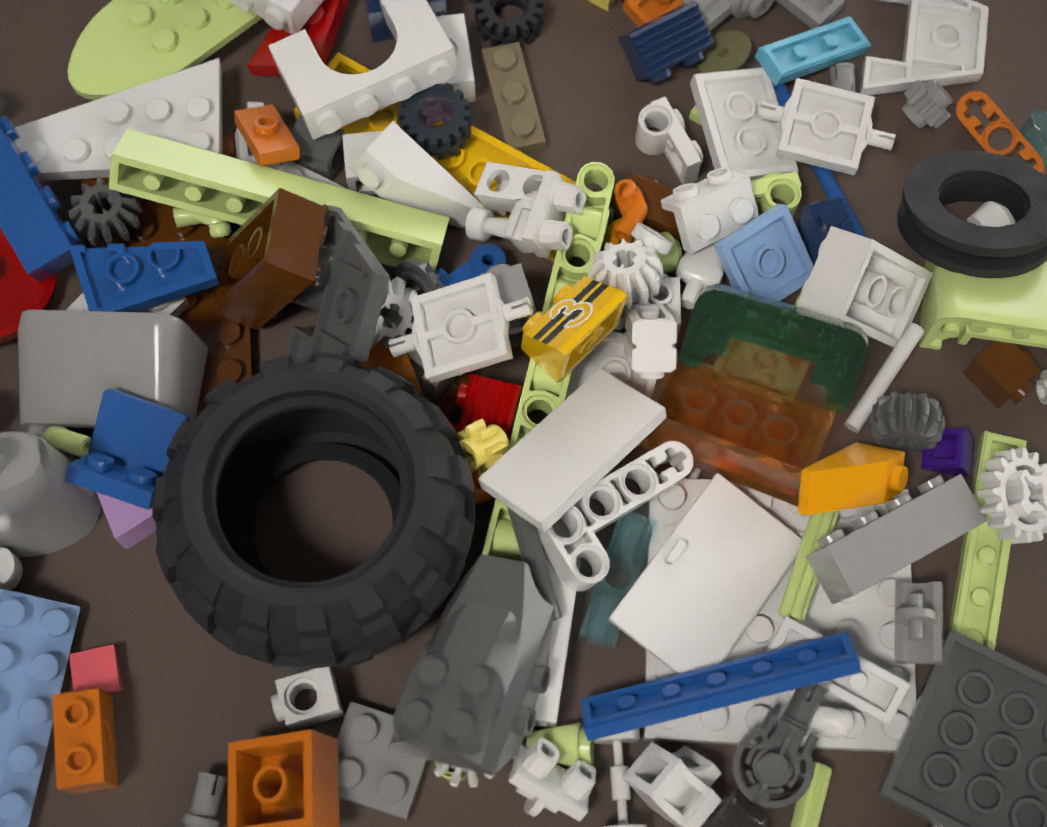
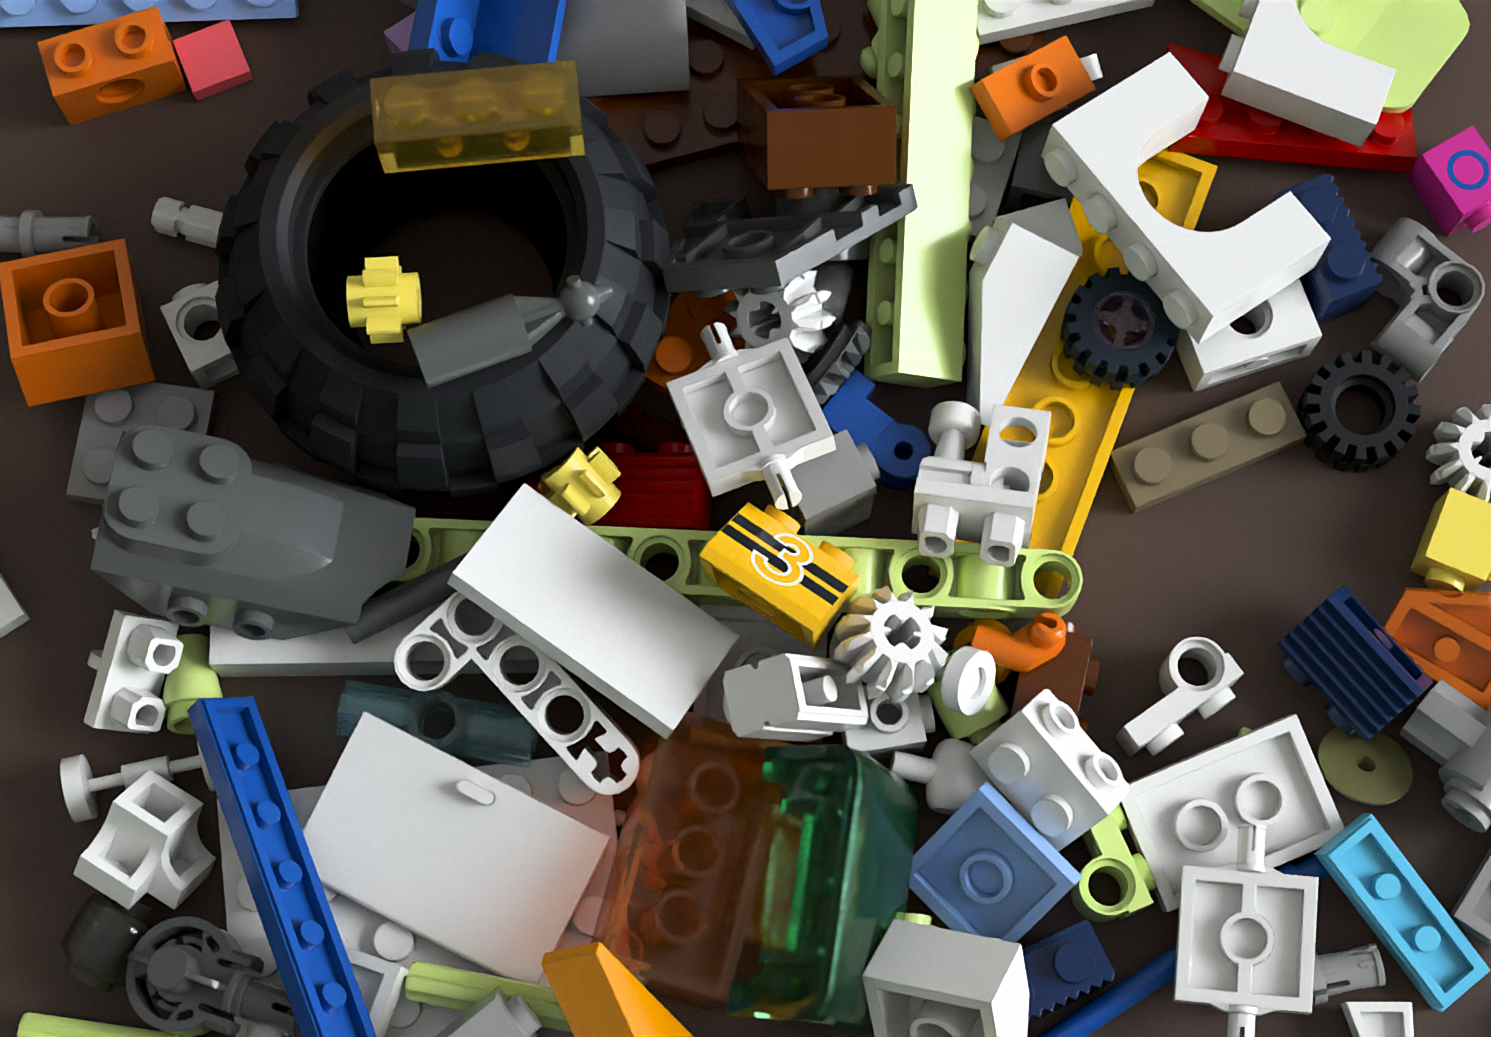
camera: 80 degrees right, 5 degrees up
(225, 692) = (196, 223): none -> white axle
(234, 431) = (477, 116): none -> clear yellow brick
(356, 514) = (384, 299): none -> light yellow gear
(394, 447) = (499, 329): none -> dark grey wheel

